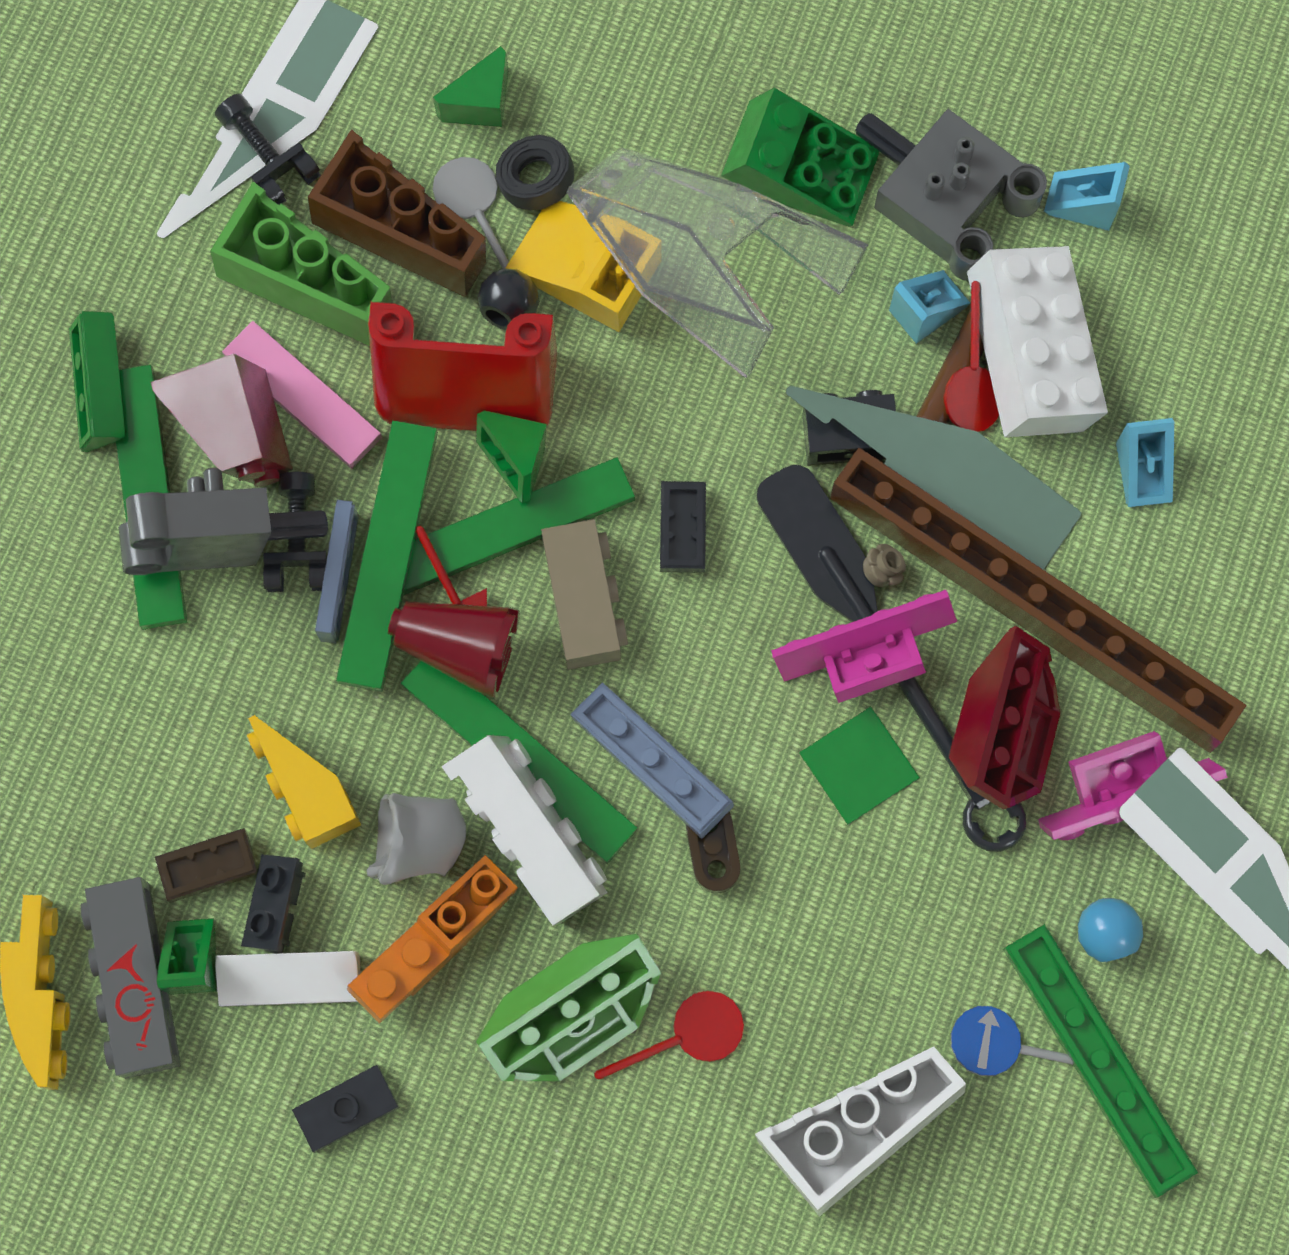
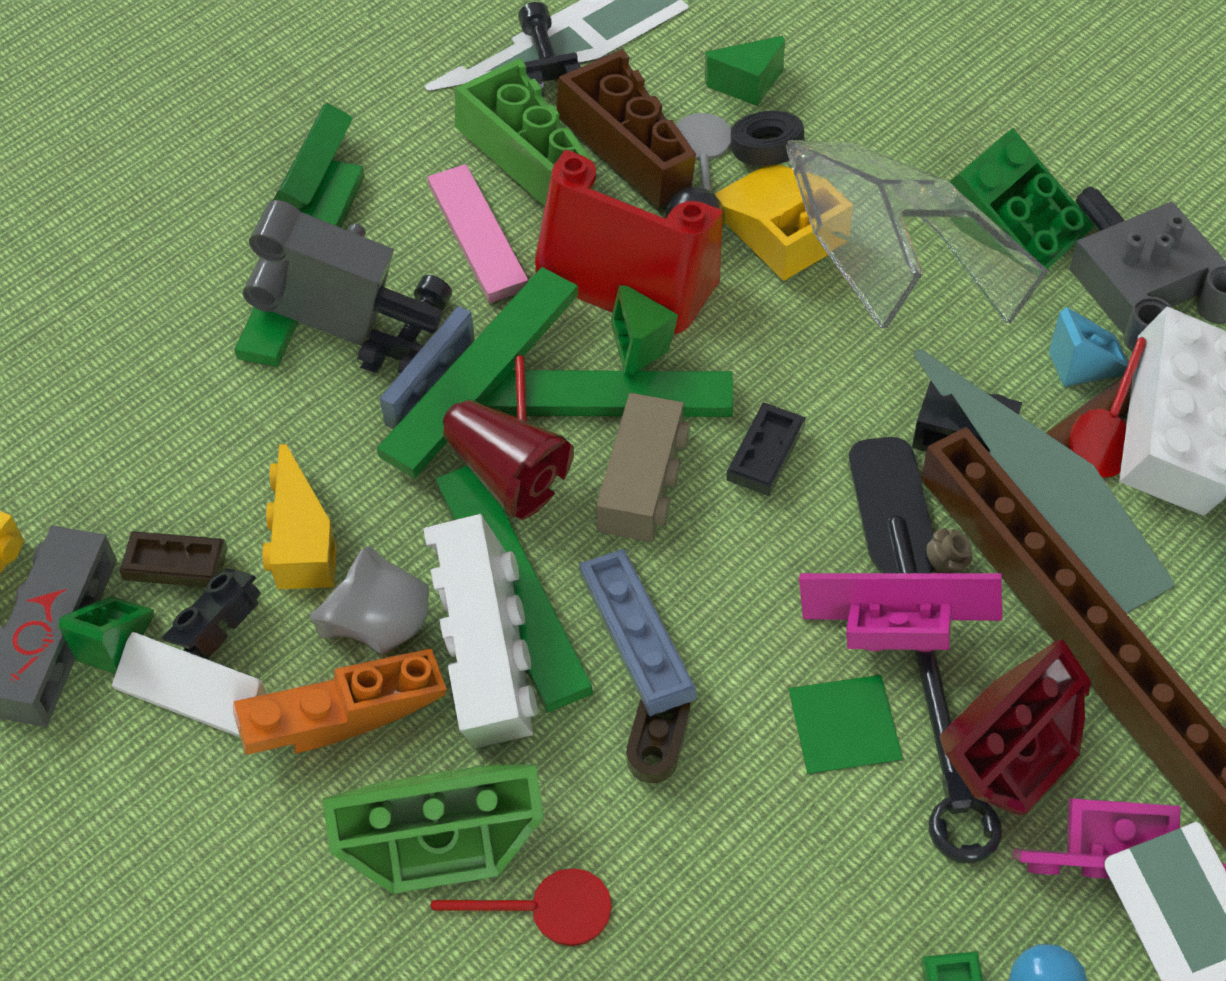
camera: 25 degrees right, 20 degrees down
(230, 417) = (403, 207): slope -> none
(345, 1108) = (171, 828): black plate -> none

